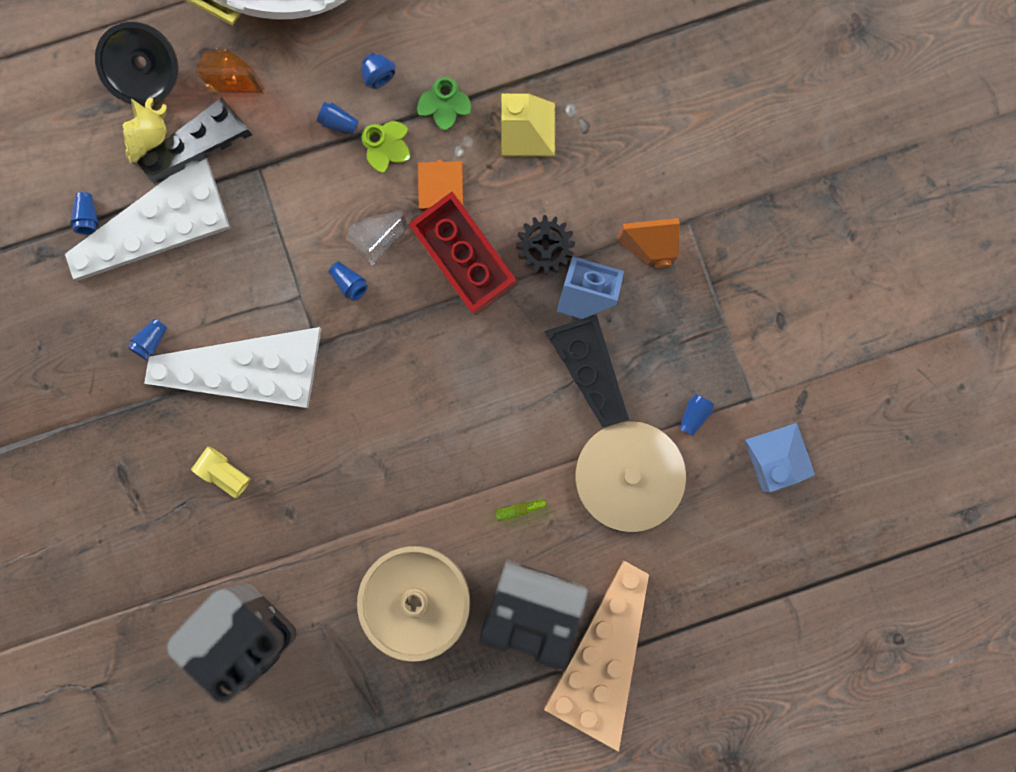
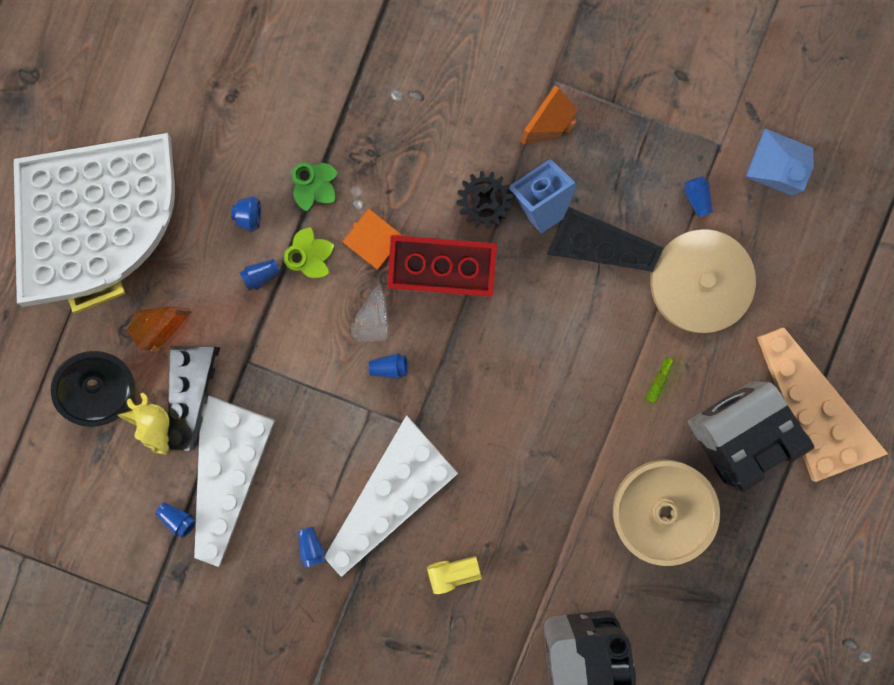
camera: 50 degrees left, 5 degrees up
(527, 126) = (383, 138): light yellow slope -> none

